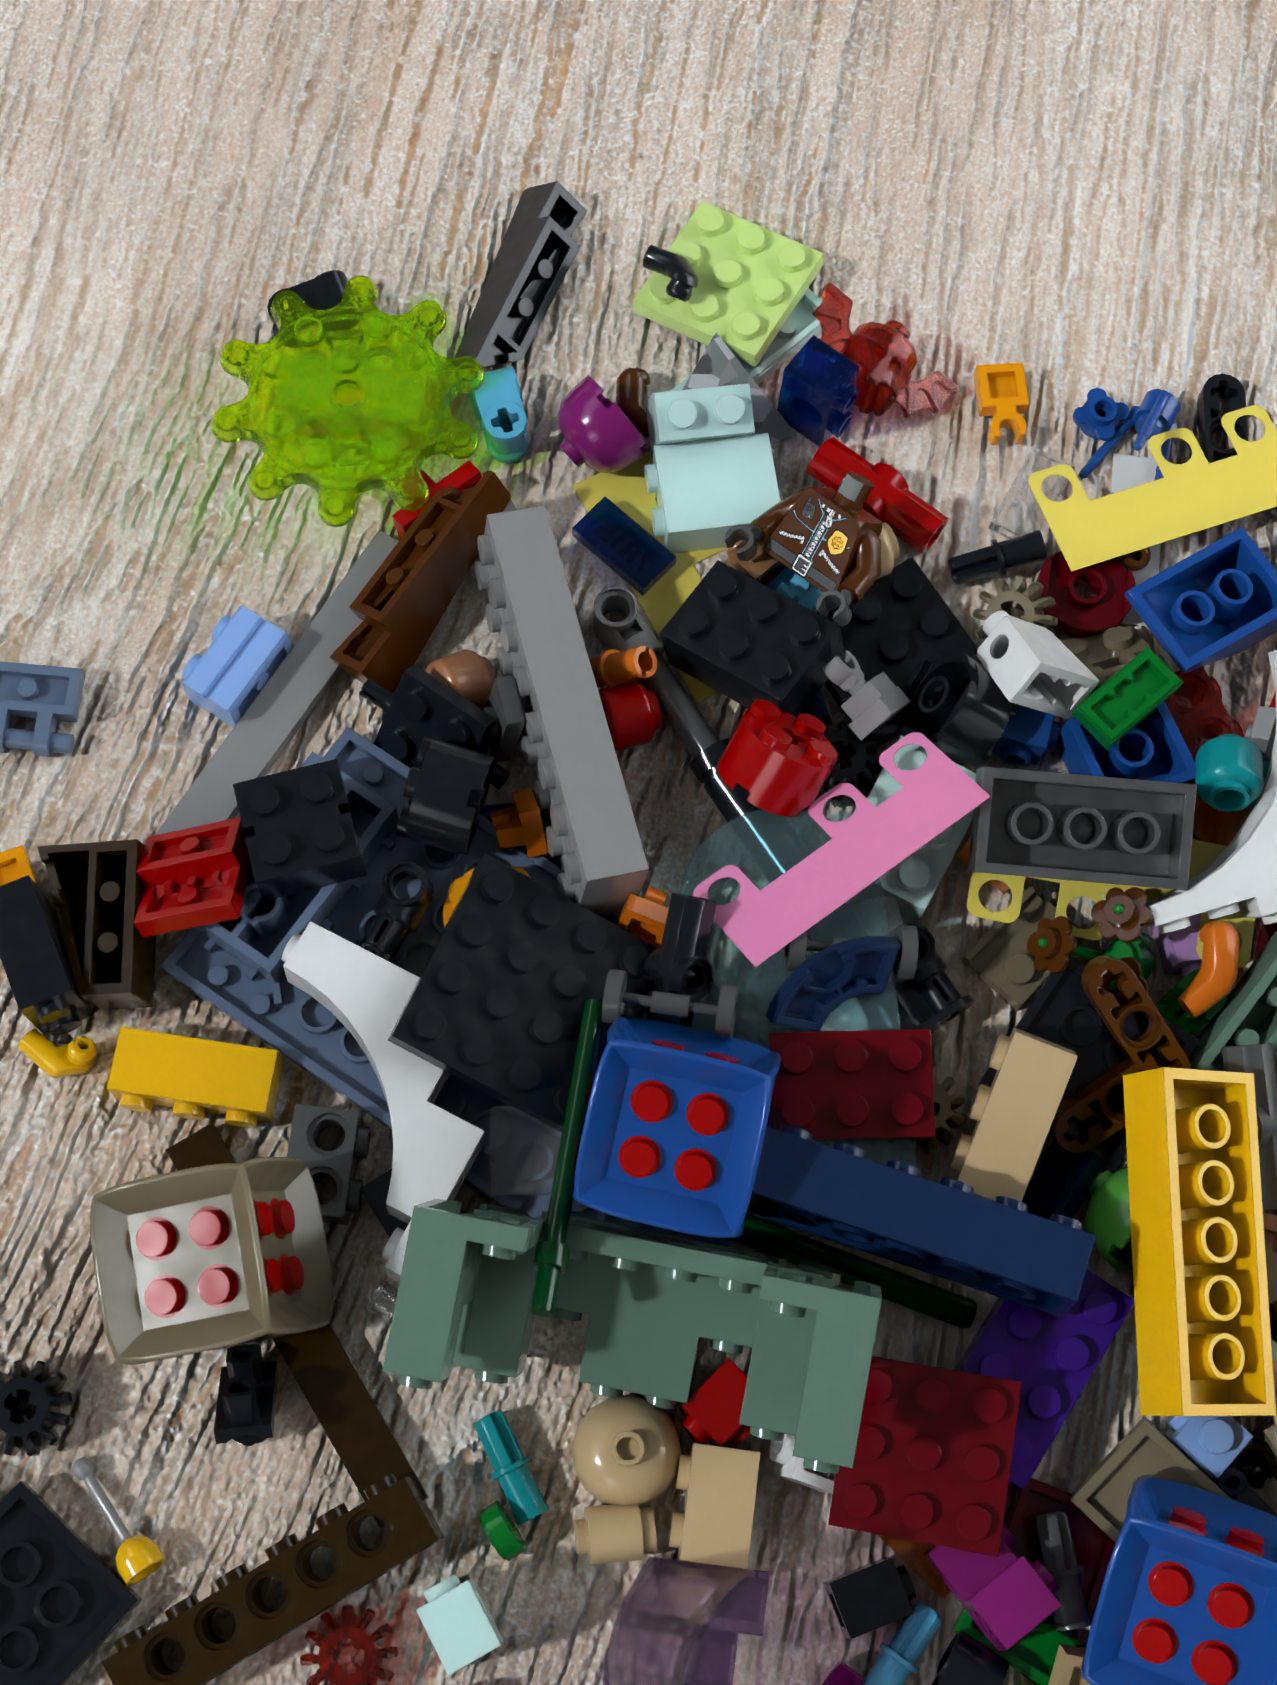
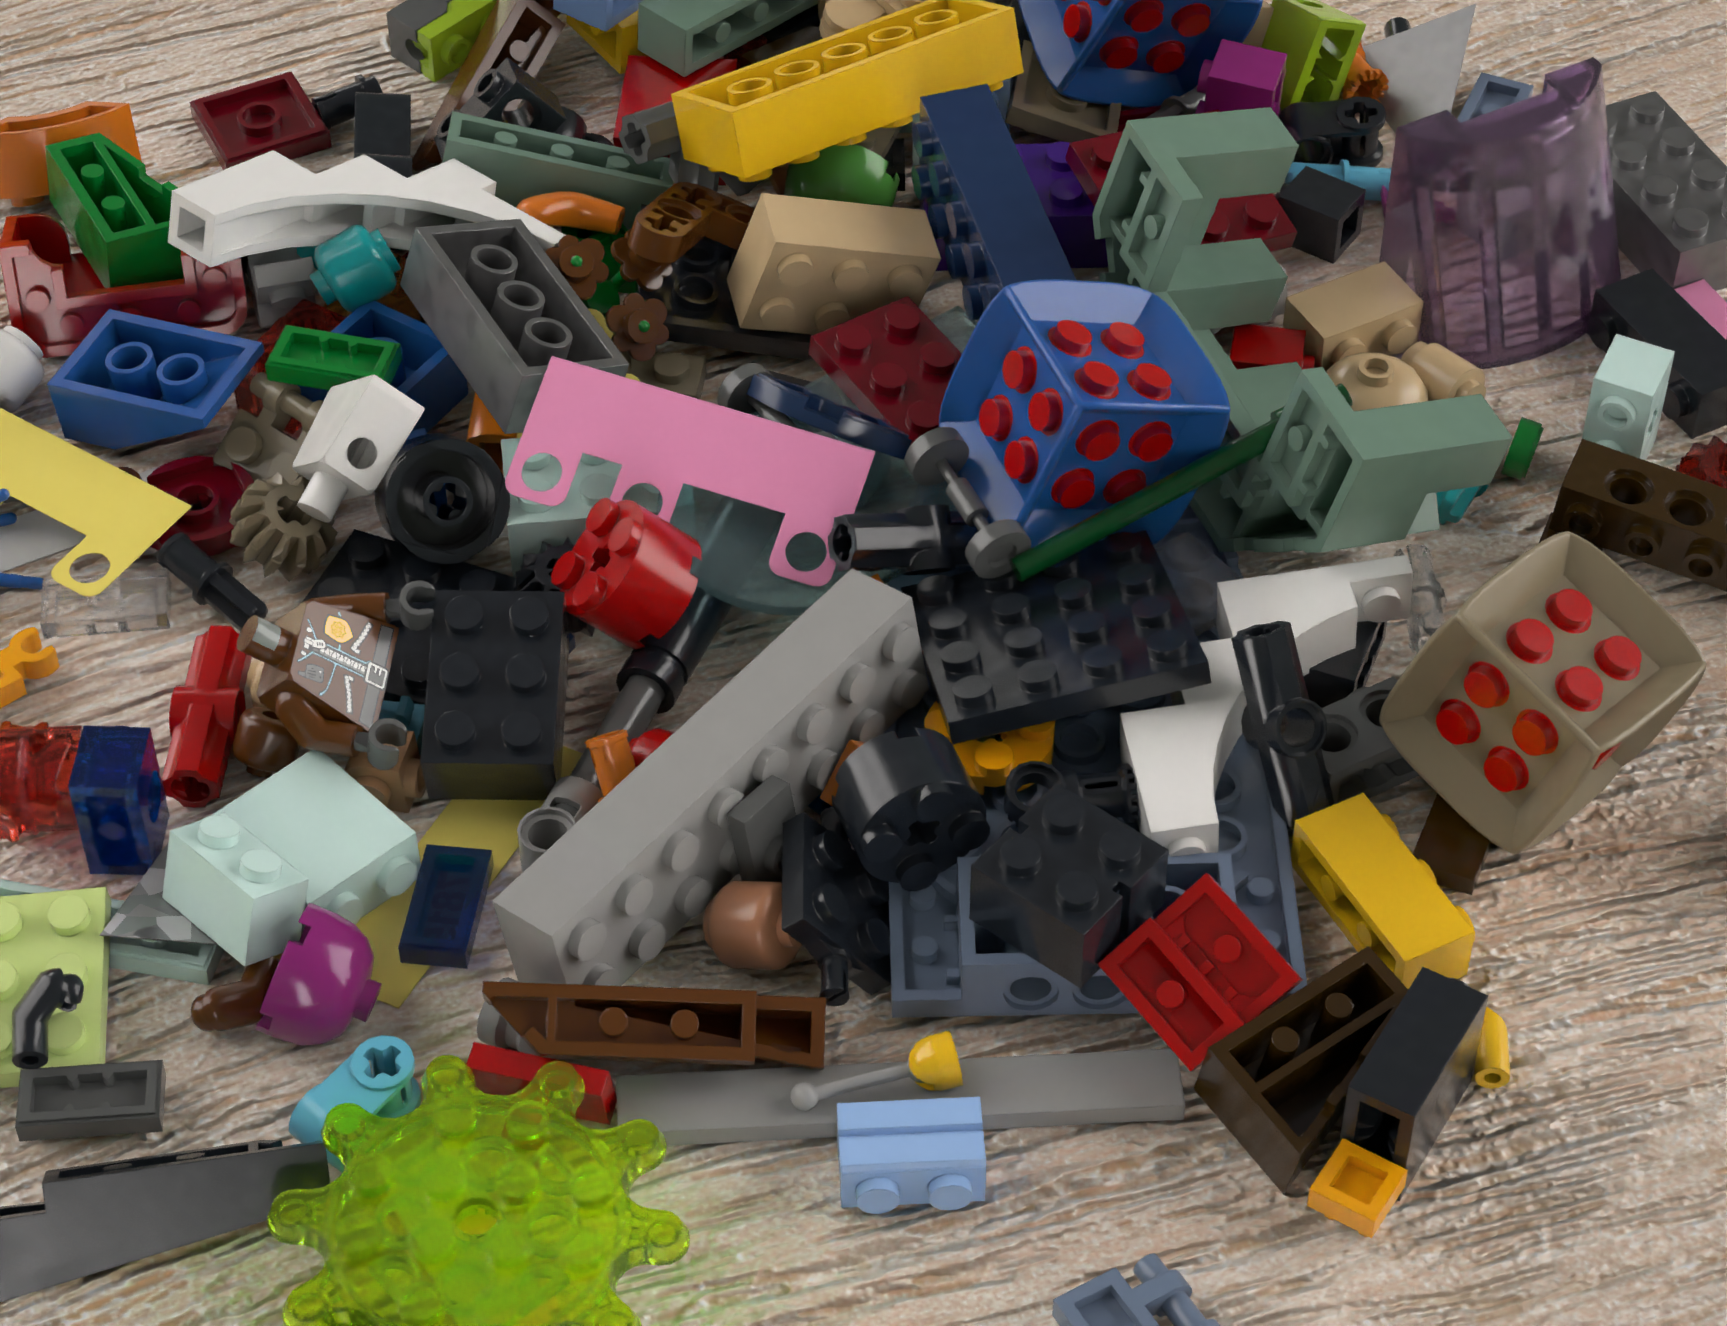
camera: 120 degrees left, 25 degrees down
(277, 710) = (930, 1064): none -> hinge
(337, 1079) = (1274, 689): none -> black piece
(611, 291) = (91, 1100): none -> dark grey plate
(871, 701) = (492, 554): light grey piece -> none

